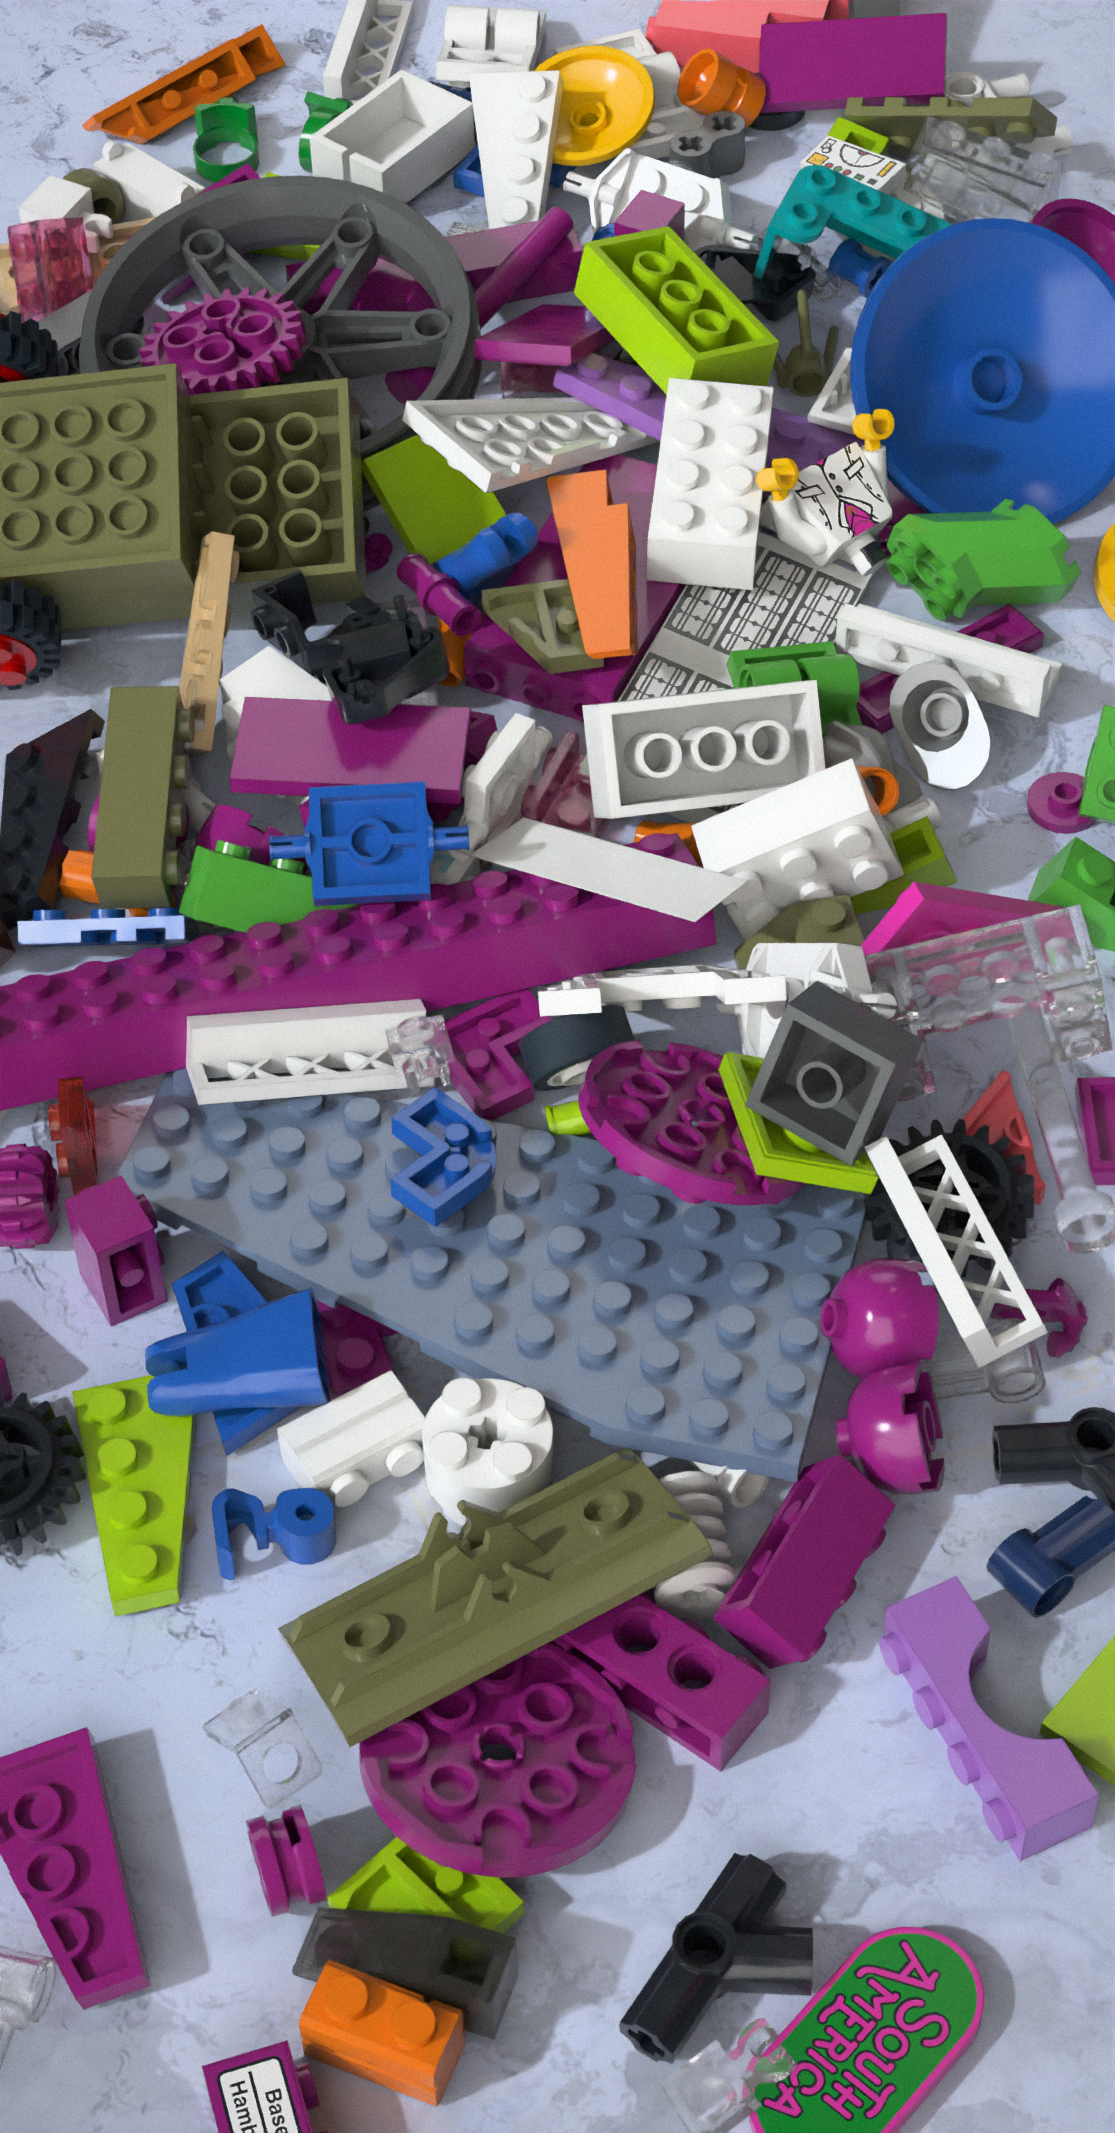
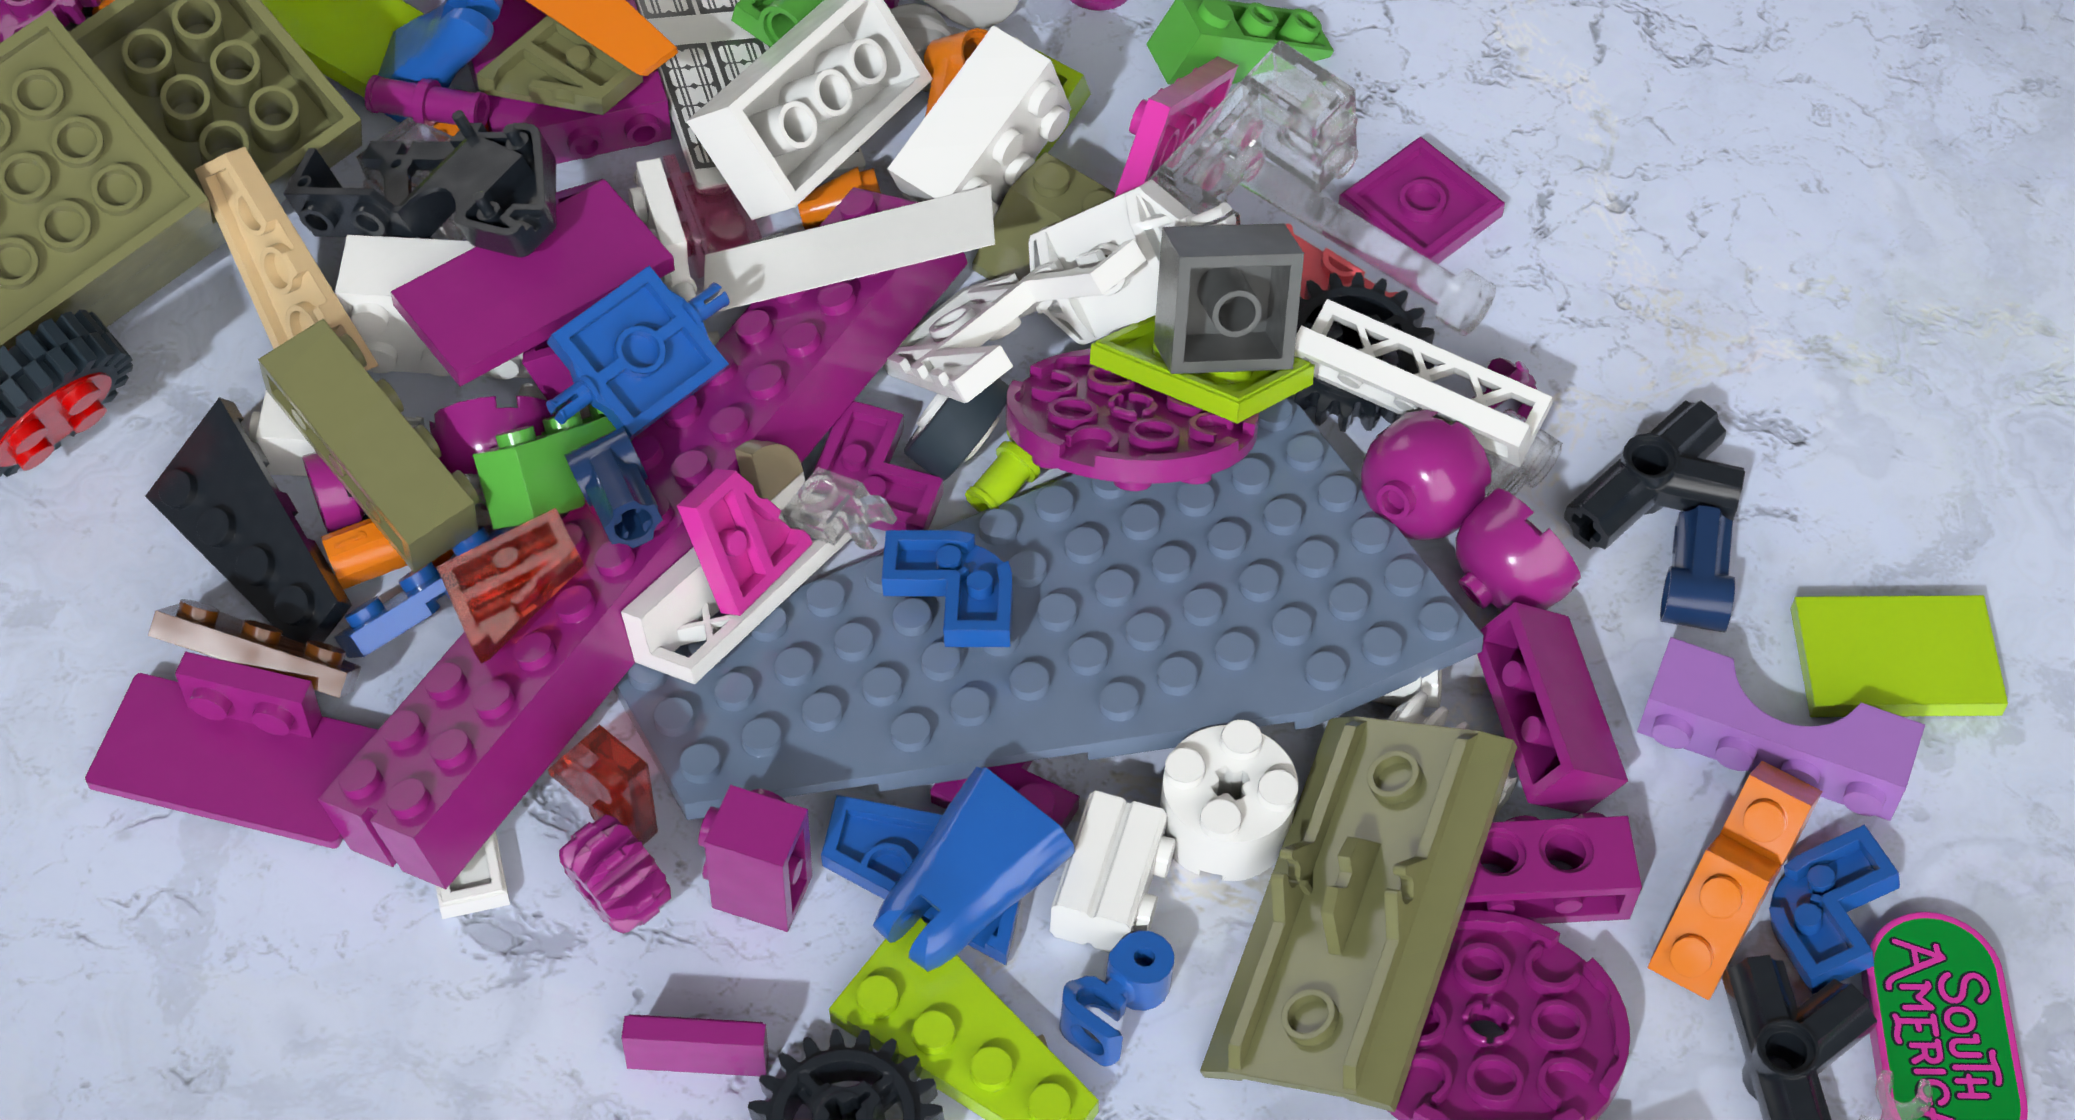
camera: 45 degrees left, 5 degrees up
(128, 943) = (509, 580): none -> clear red wing
(260, 920) = (616, 487): none -> dark blue piece
(315, 1019) = (738, 539): none -> dark pink wing
(391, 986) = (767, 466): none -> dark tan tile
(808, 1790) = (1734, 879): none -> orange arch
(895, 1860) = (1814, 900): none -> blue plate

